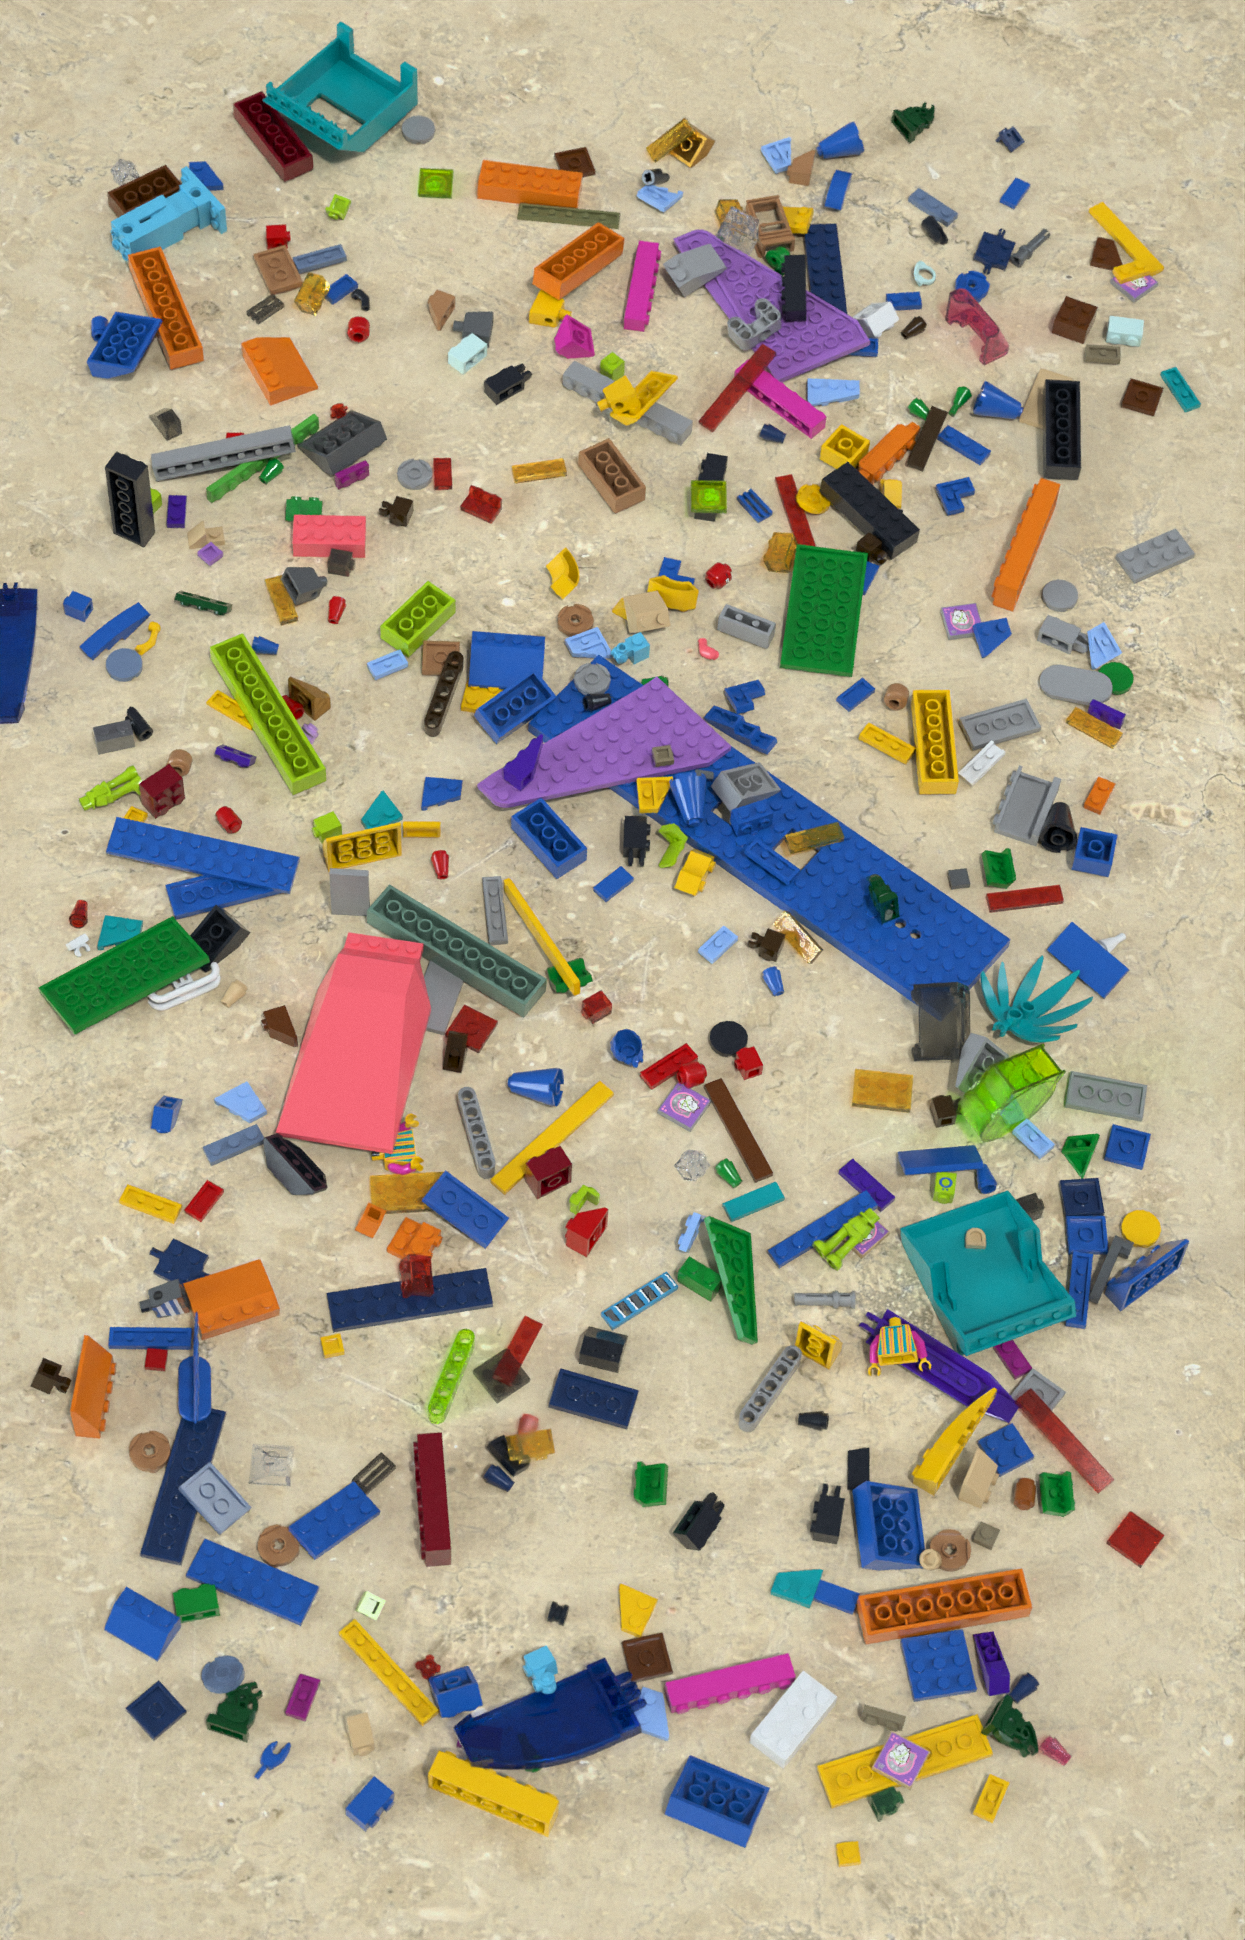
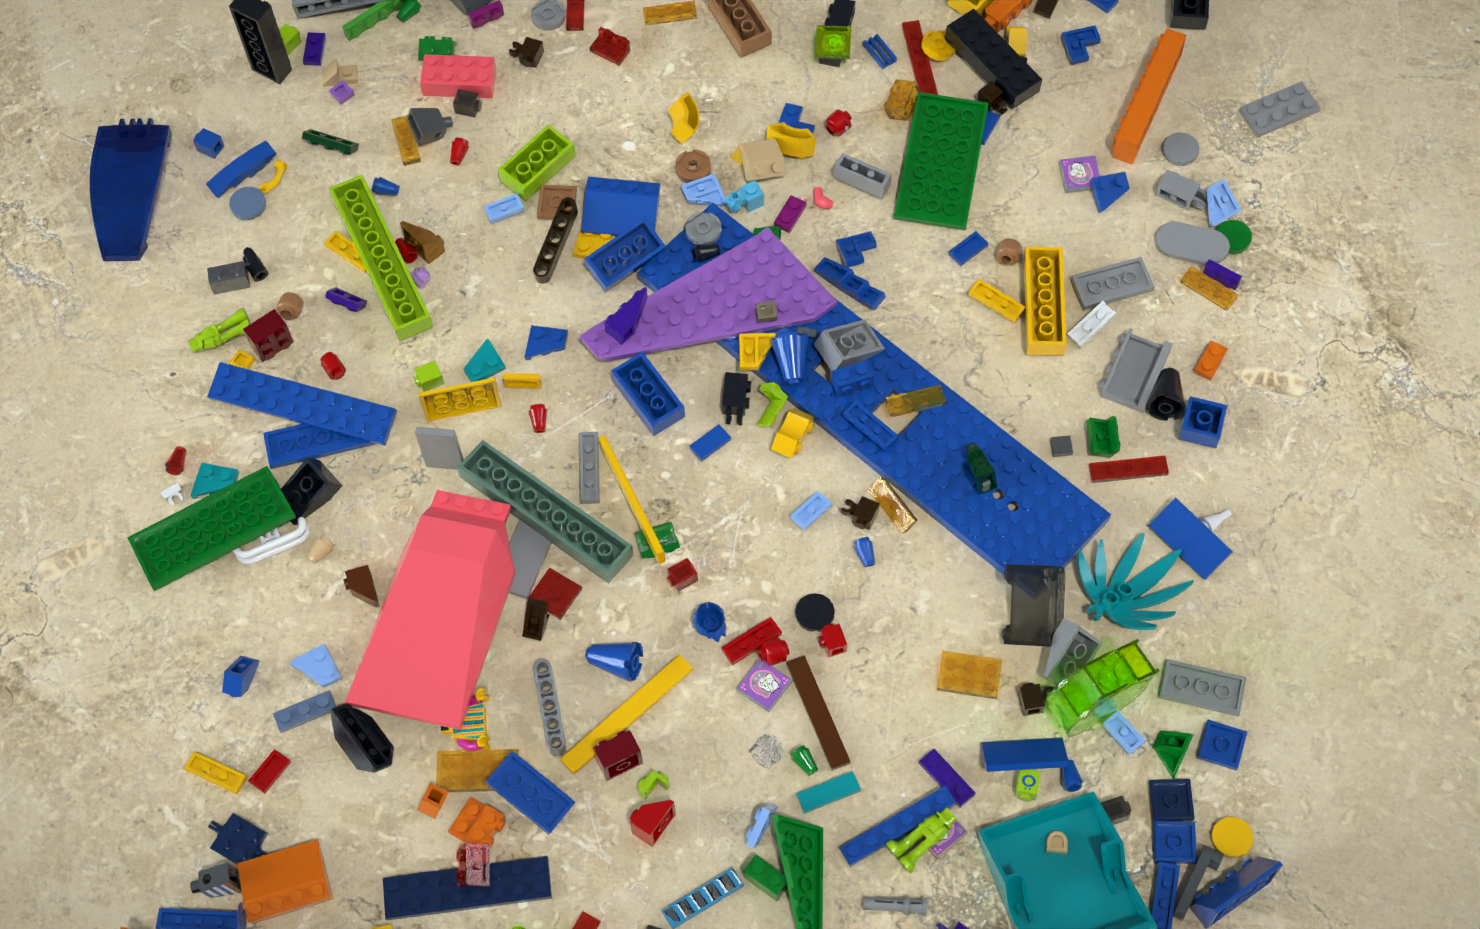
camera: 10 degrees right, 5 degrees up
(676, 664) = (790, 214): none -> magenta plate

